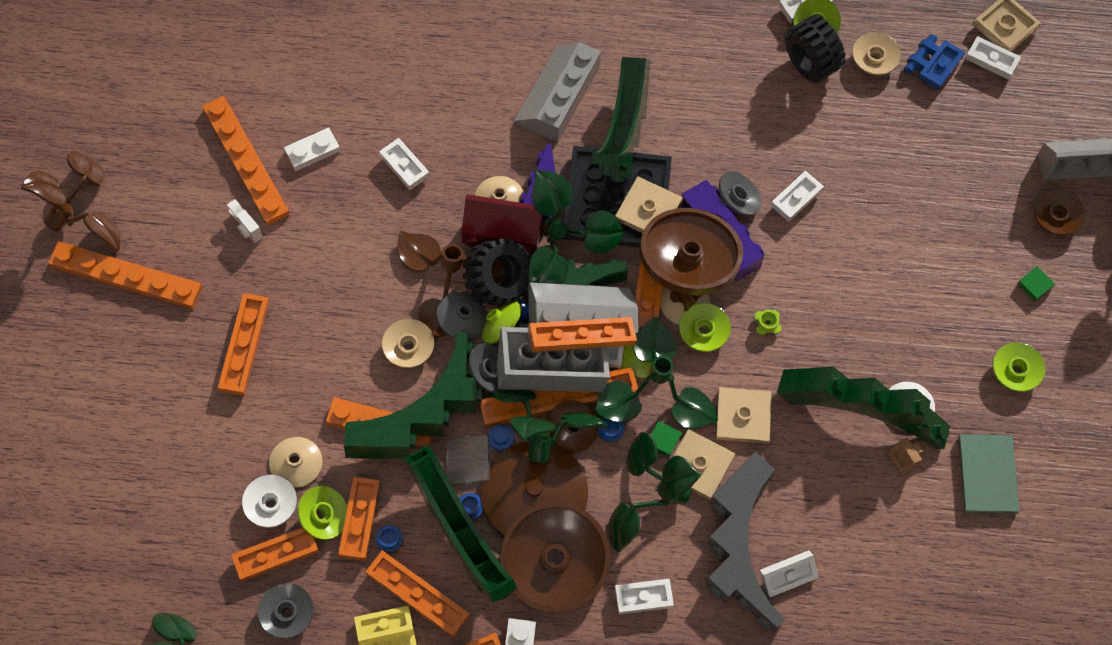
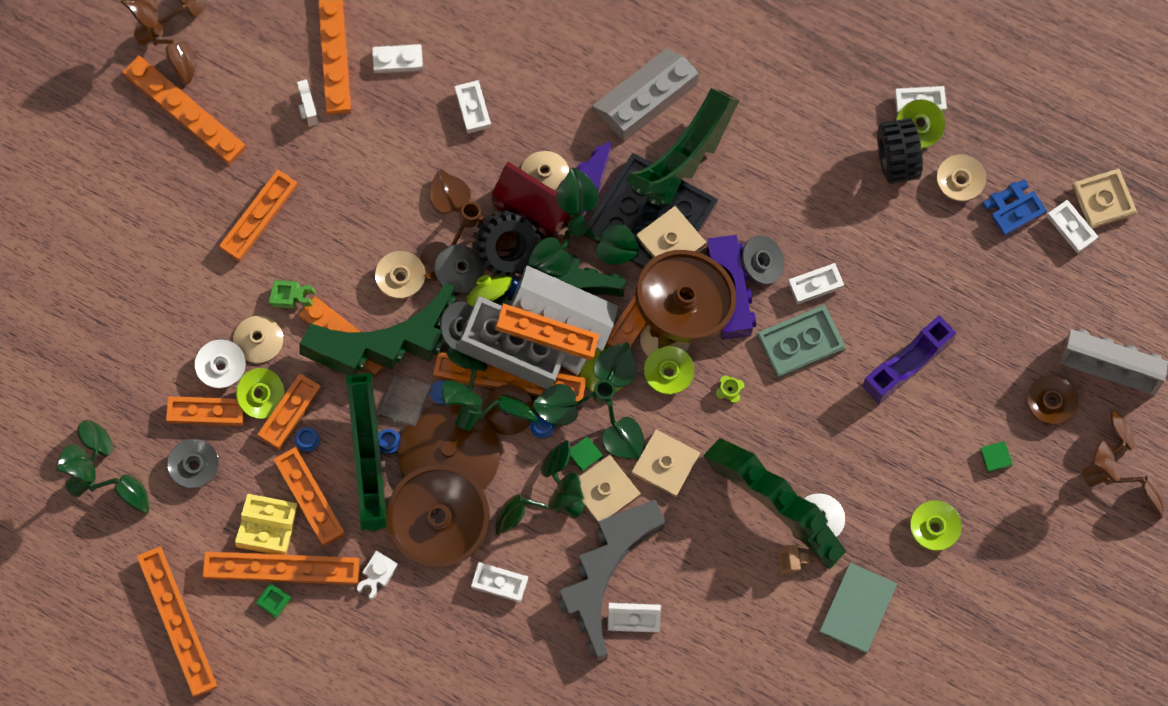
camera: 25 degrees right, 5 degrees up
(307, 405) = (287, 293): none -> bright green plate
(809, 253) = (801, 341): none -> sand green tile
(917, 228) = (898, 370): none -> dark purple arch

